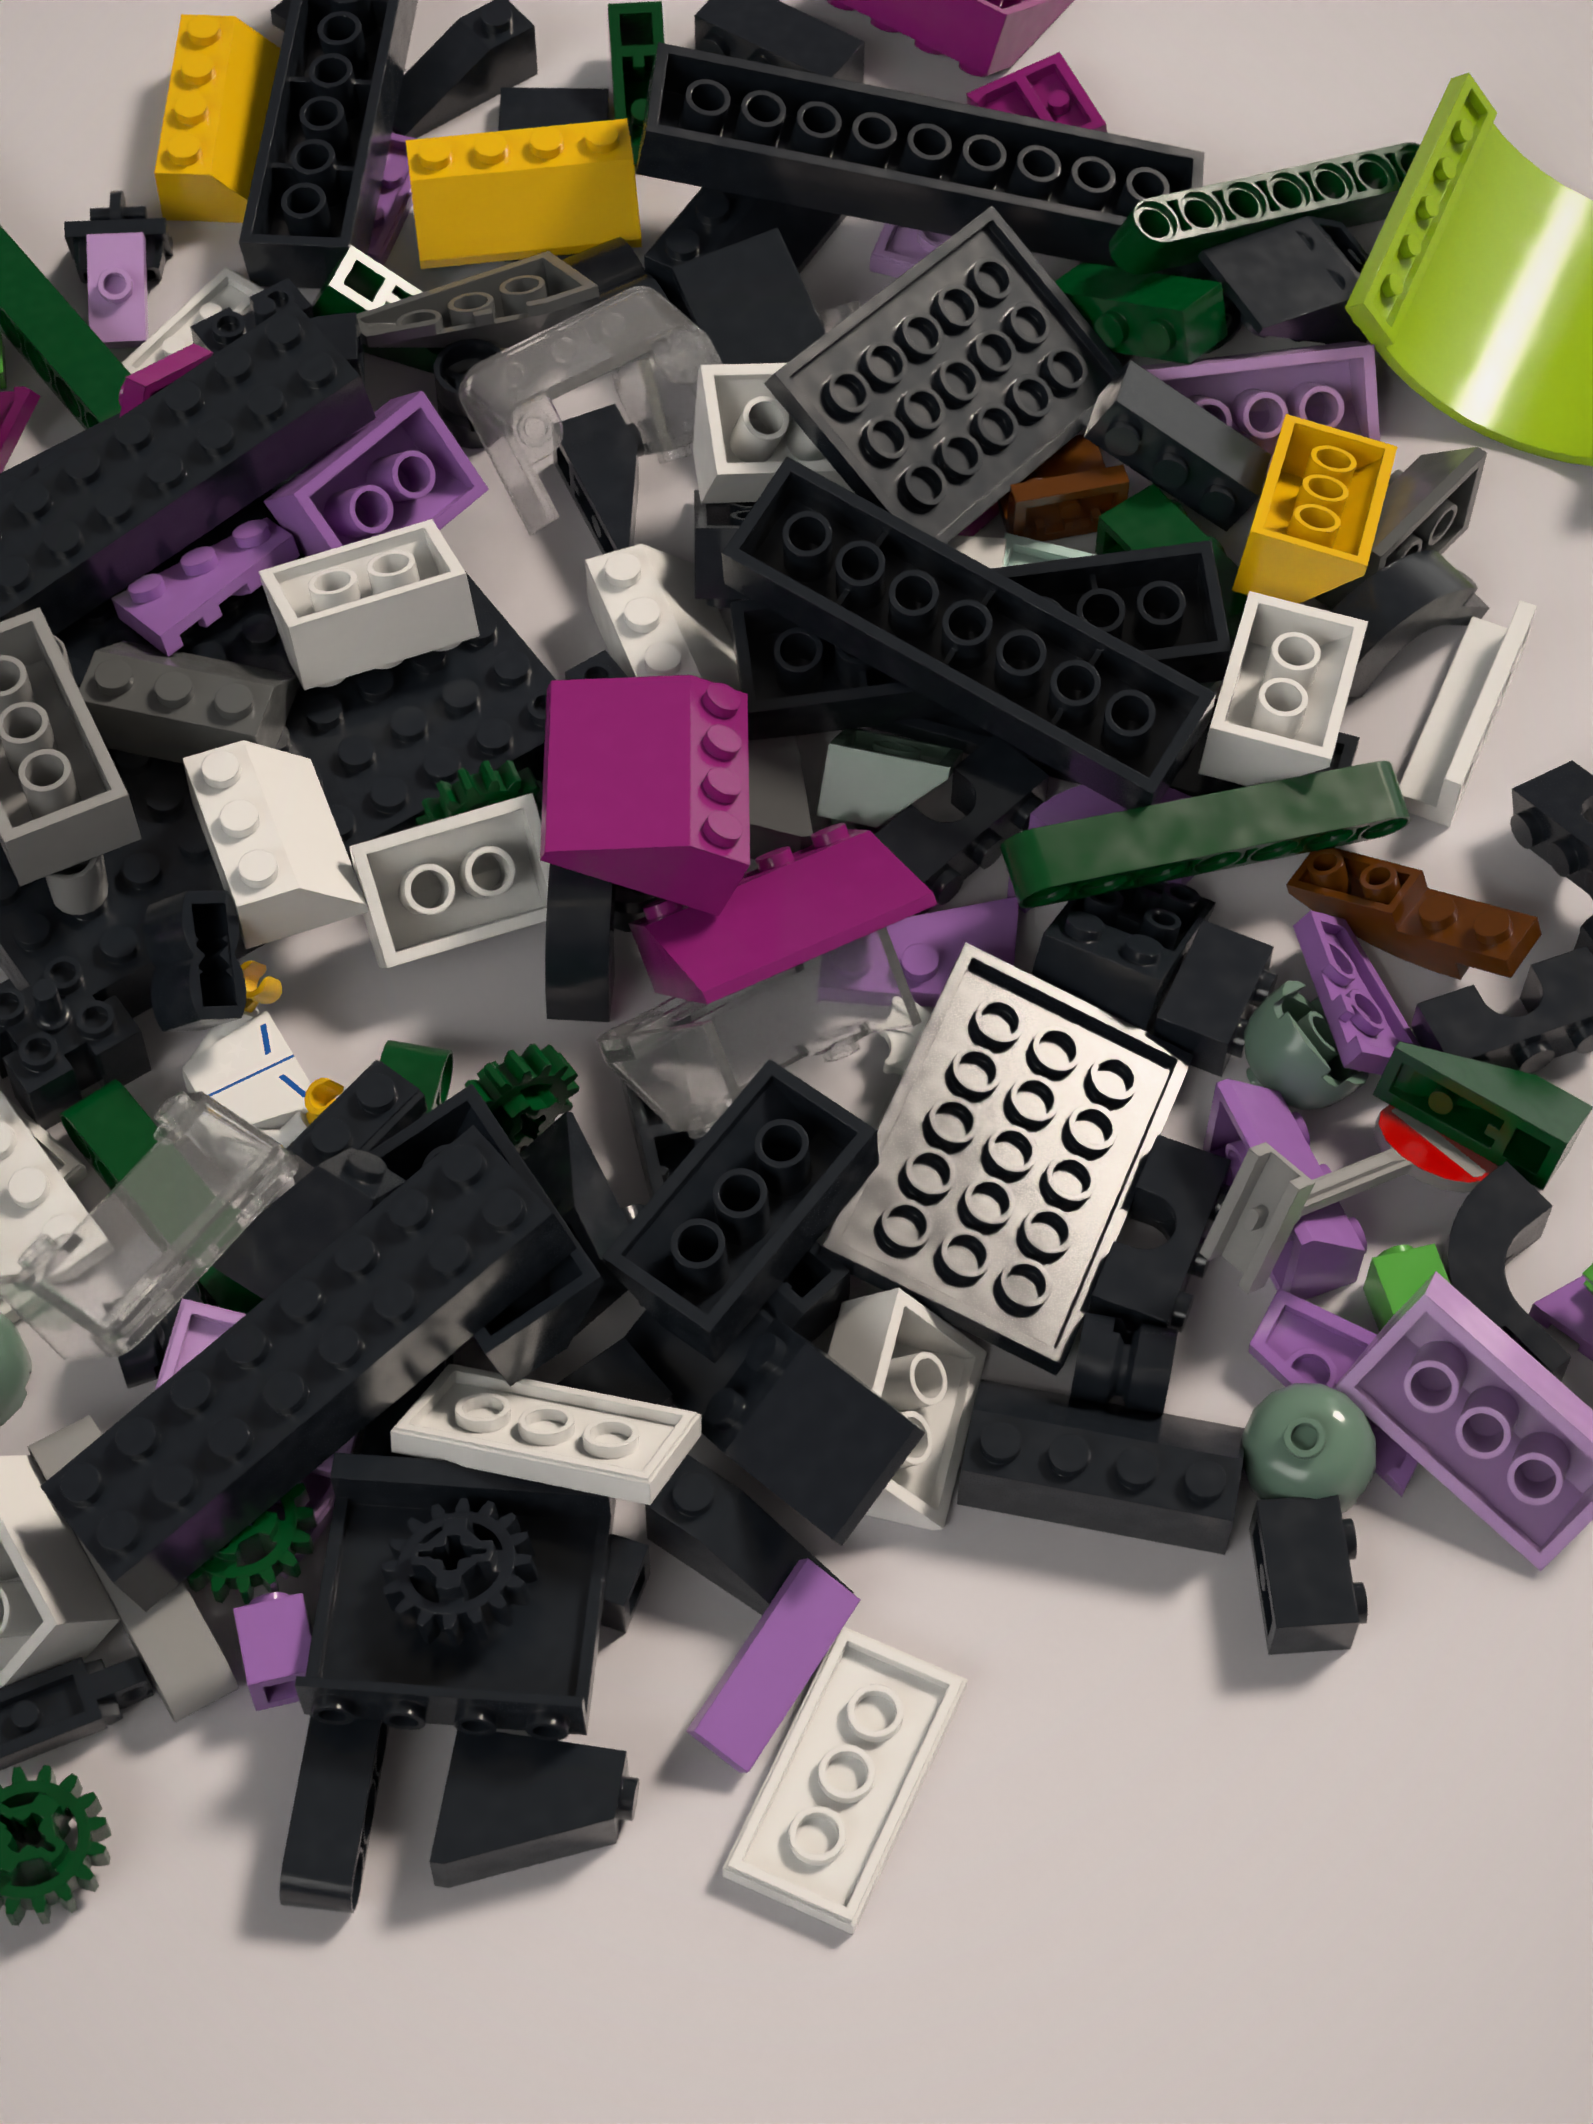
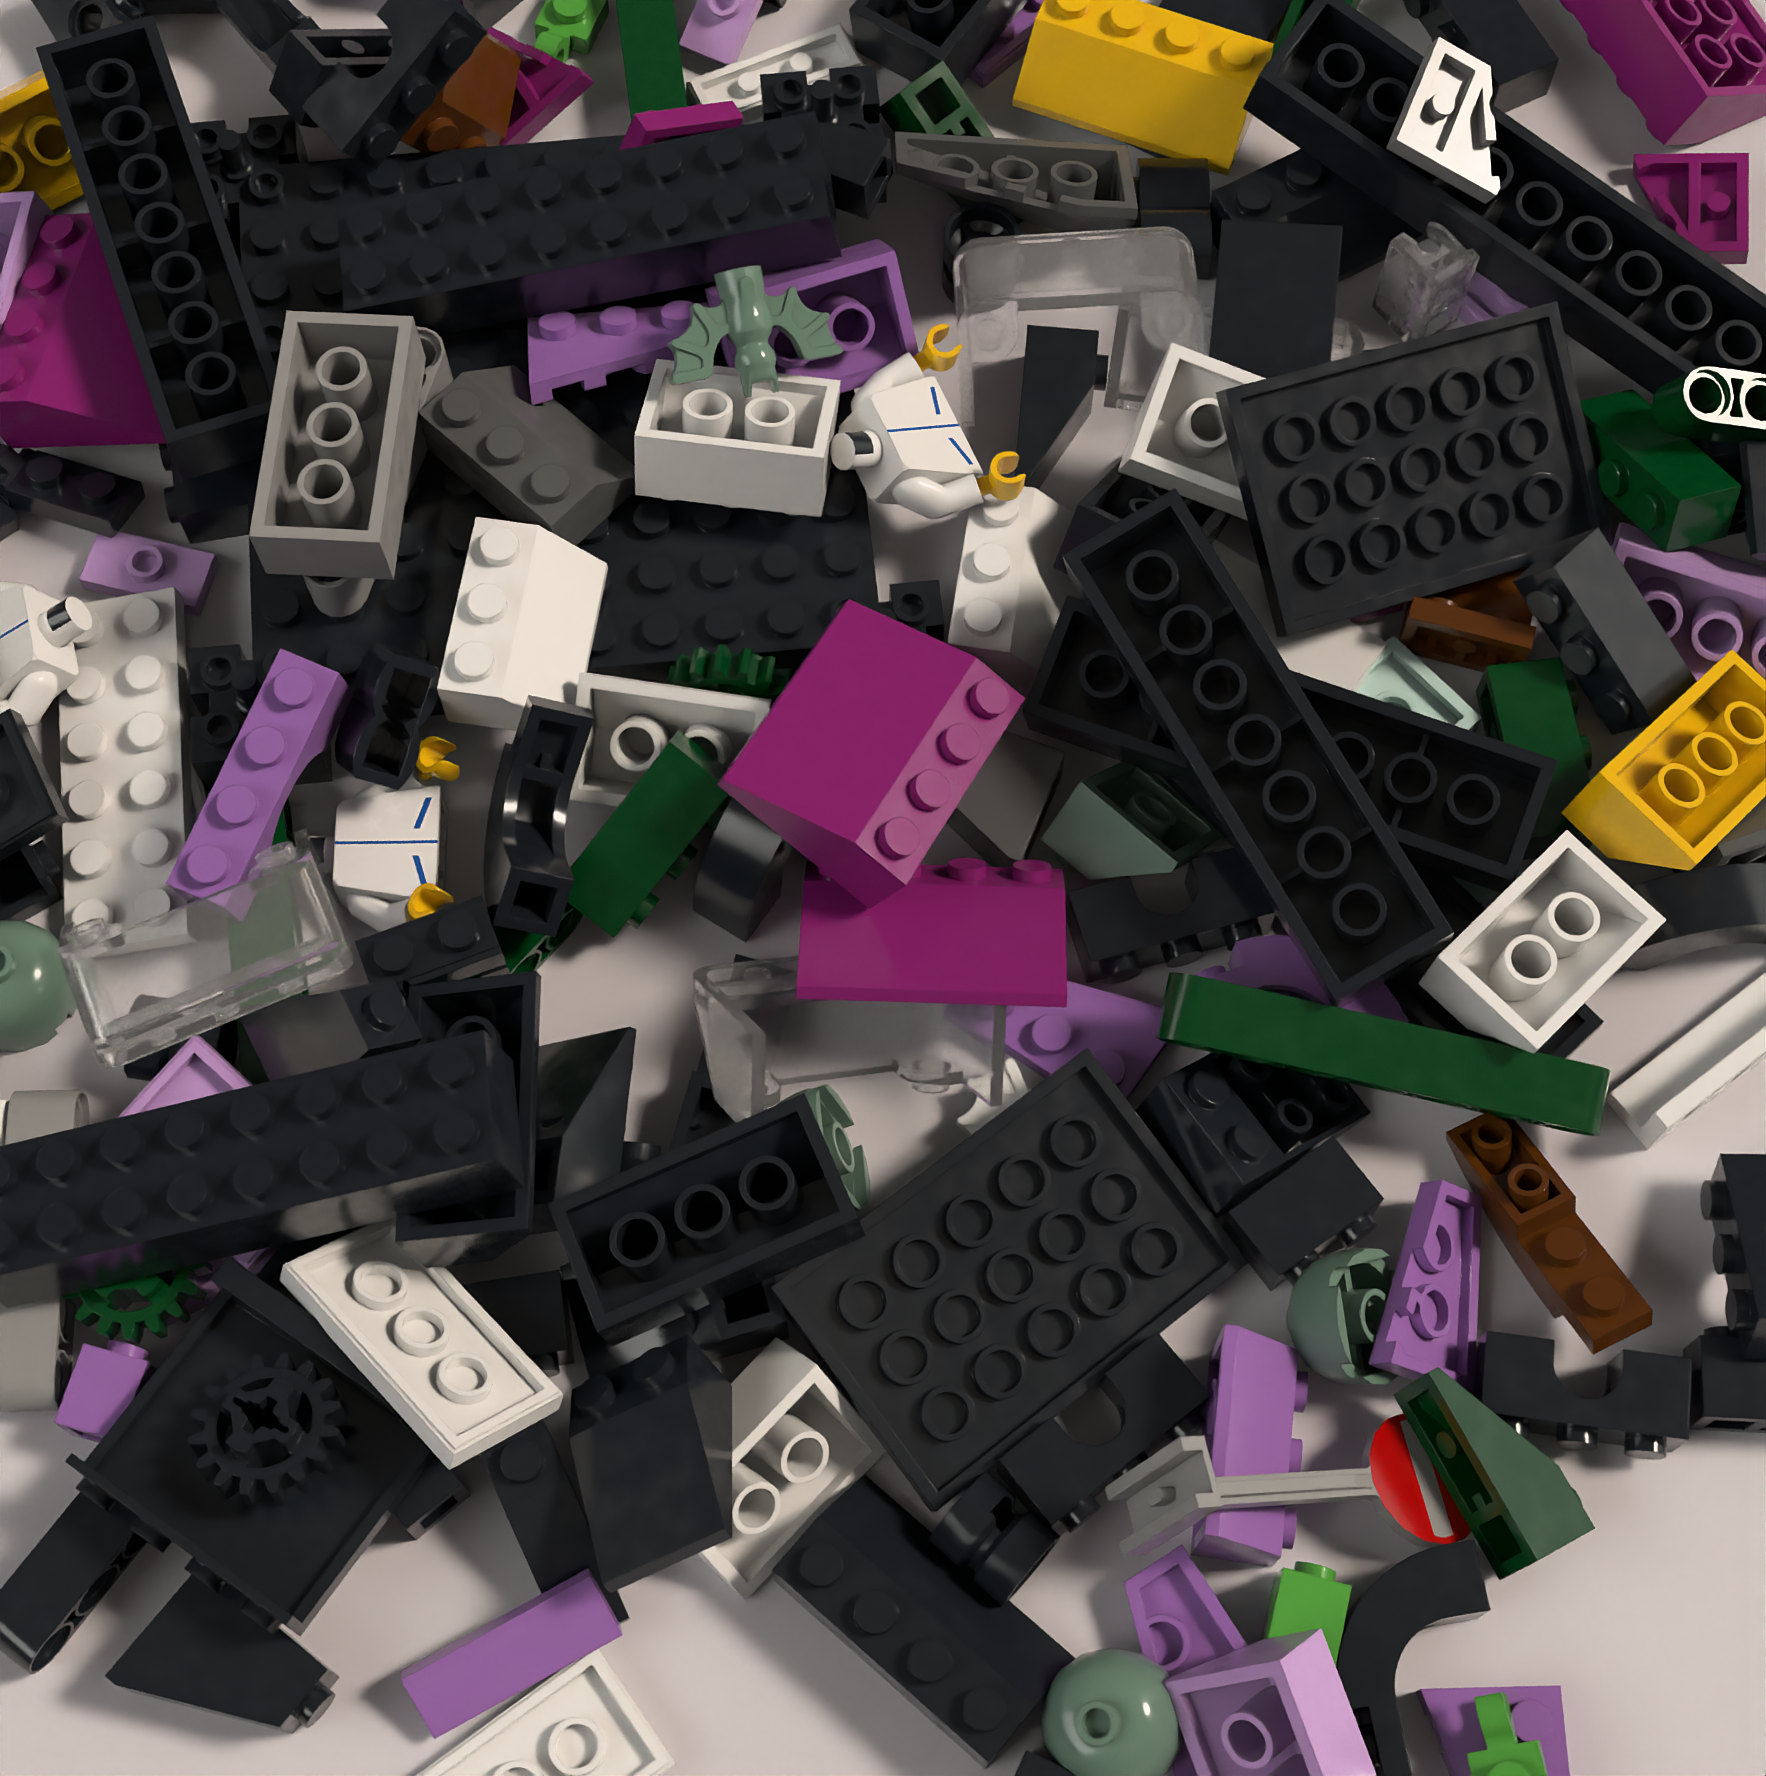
camera: 30 degrees right, 10 degrees up
(112, 1058) = (281, 735): none -> medium lavender arch
(331, 495) = (747, 320): none -> sand green animal
(367, 985) = (525, 830): none -> black arch
(484, 958) = (649, 836): none -> dark green brick
(519, 549) = (910, 443): none -> white torso
(527, 1091) = (599, 989): dark green gear -> none
(823, 103) = (1449, 121): none -> wing
(862, 252) = (1422, 289): none -> clear hinge

